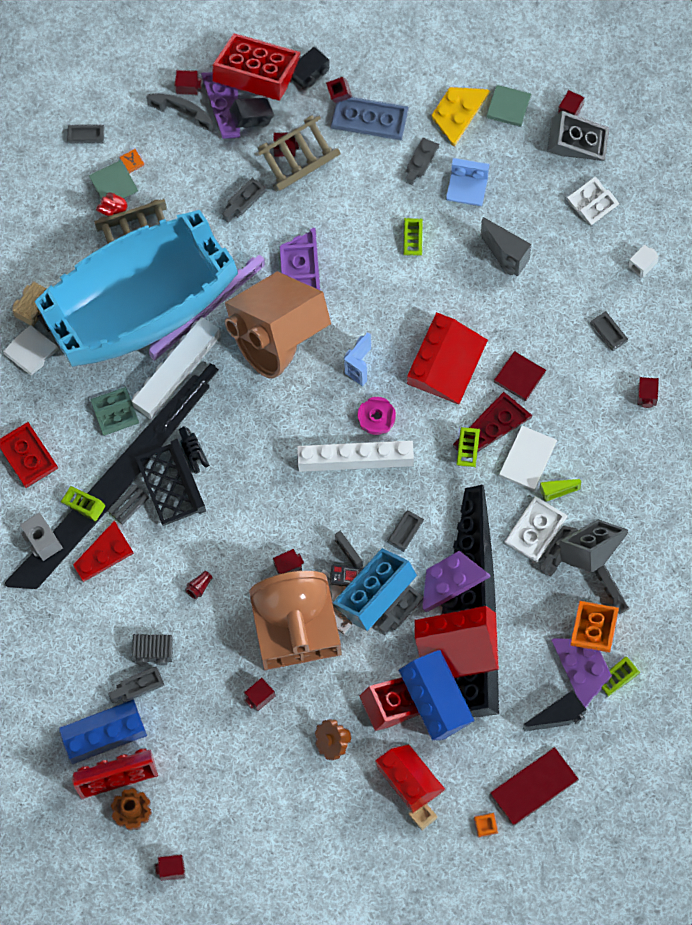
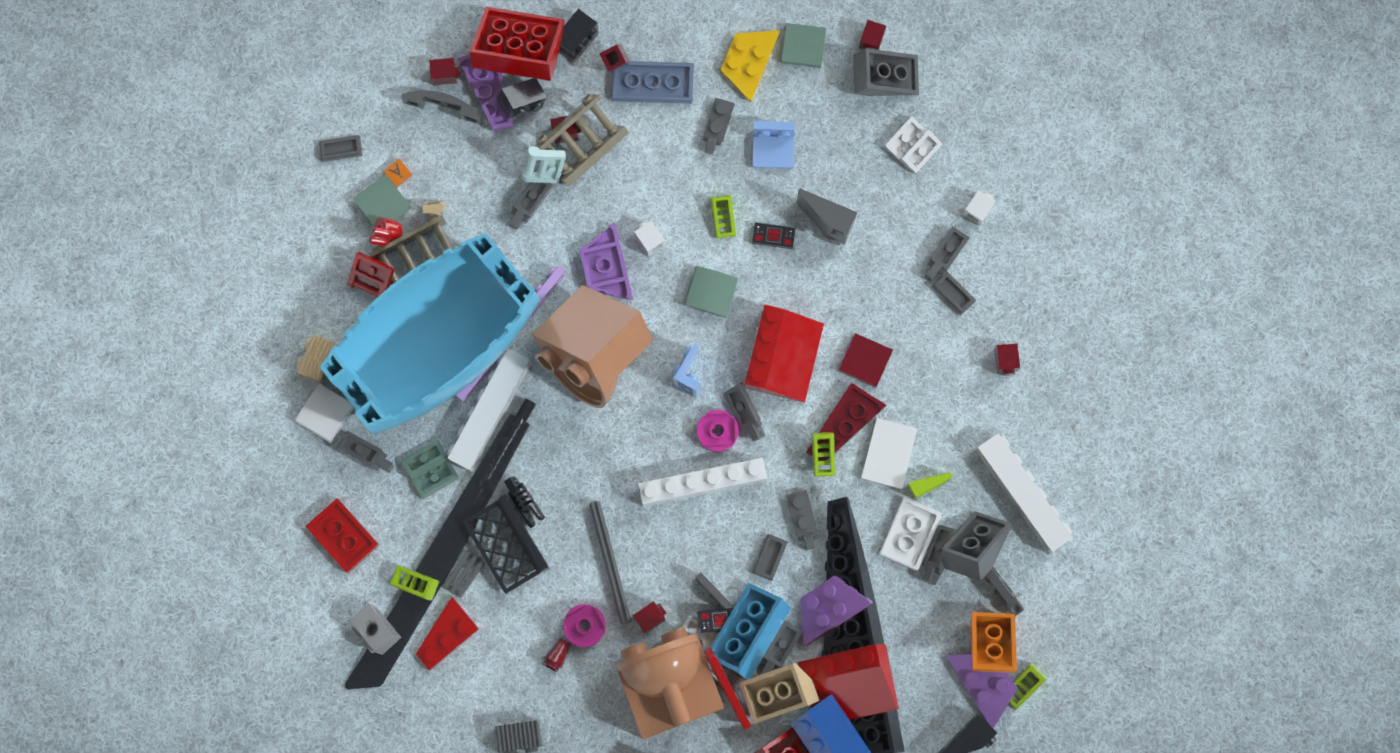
camera: 10 degrees left, 10 degrees up
(59, 388) = (364, 452): none -> dark grey hinge
(92, 234) = (372, 271): none -> plate
(158, 193) = (433, 208): none -> tan plate
(226, 574) = (588, 614): none -> dark pink plate
(260, 510) = (610, 562): none -> dark grey axle
(266, 171) = (550, 166): none -> light aqua plate
(344, 244) = (649, 237): none -> white brick
(347, 633) = (729, 692): none -> red tile
(391, 298) = (711, 291): none -> sand green slope
(392, 641) = (778, 692): none -> tan slope
(403, 402) = (744, 411): none -> dark grey hinge
(440, 501) = (802, 518): none -> dark grey hinge
(455, 259) = (773, 235): none -> tile
(607, 295) = (946, 253): none -> dark grey hinge
(645, 509) = (1023, 493): none -> white brick

